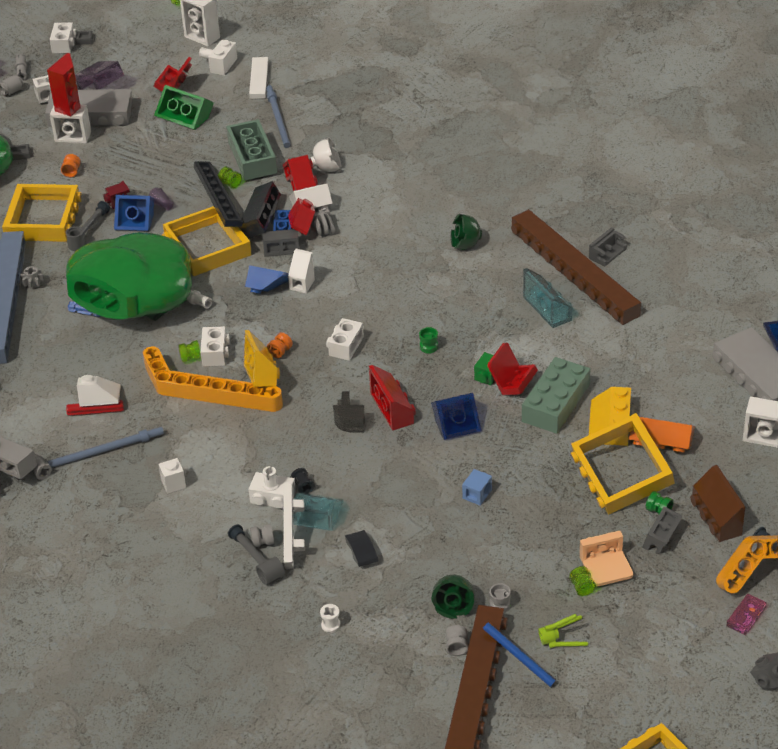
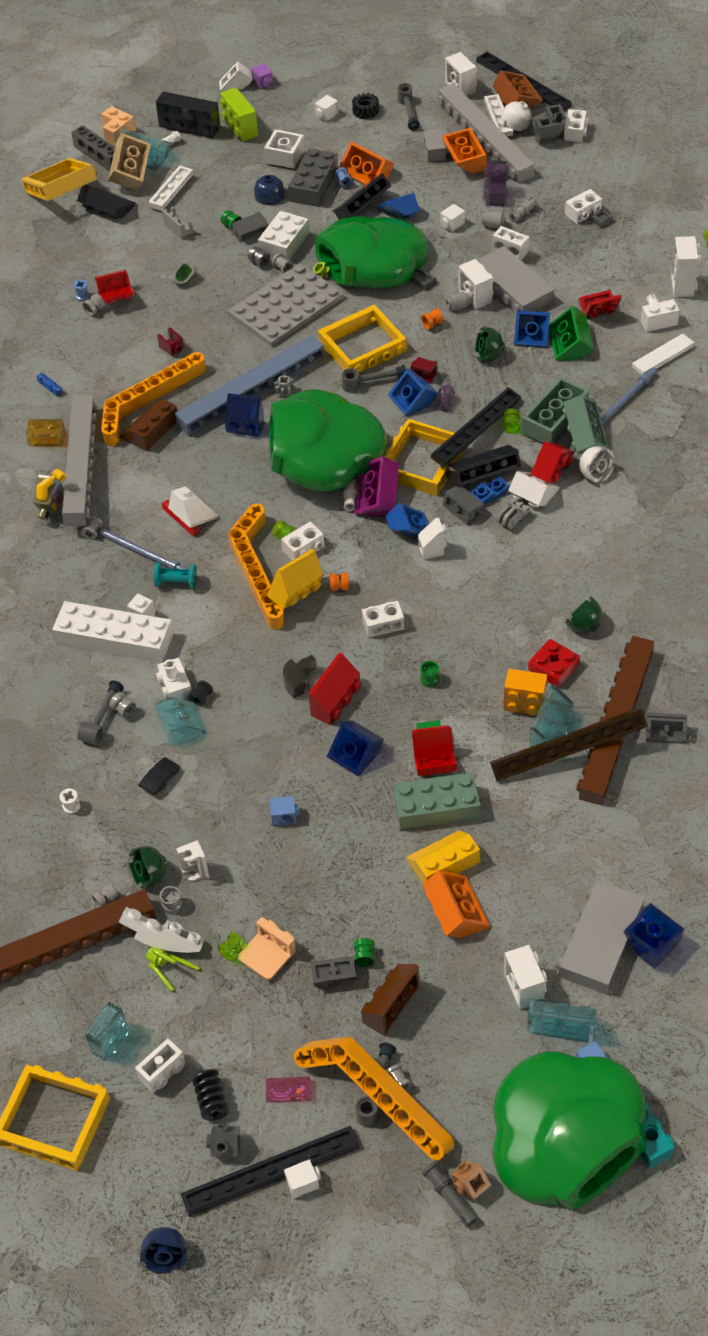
camera: 55 degrees right, 10 degrees up
(37, 311) = (244, 415): none -> clear blue slope
(64, 86) = (482, 249): red slope -> none
(69, 143) = (458, 301): none -> light grey brick
(100, 74) = (552, 259): clear purple panel -> none
(139, 149) = (489, 344): none -> dark green cylinder
(150, 121) = (532, 328): none -> blue slope
(170, 428) = (175, 575): none -> teal hose
(174, 505) = (113, 631): none -> white brick
(214, 275) = (377, 488): none -> magenta slope
(288, 137) = (584, 423): none -> sand green slope
(290, 544) = (126, 720): white hinge -> none
(301, 215) = (497, 496): red slope -> none
(481, 559) = (193, 859): none -> white hinge
(488, 271) = (554, 661): none -> red brick
(506, 295) = (524, 691): none -> light orange brick
(521, 656) = (114, 951): blue bar -> none
(534, 616) = (167, 937): none -> white slope
(580, 296) = (568, 744): none -> dark brown tile
(602, 695) = (107, 1031): none -> clear light blue brick
(635, 492) = (403, 913): yellow window -> none
(665, 678) = (160, 1066): none -> white brick
(717, 661) = (210, 1095): none -> black piece

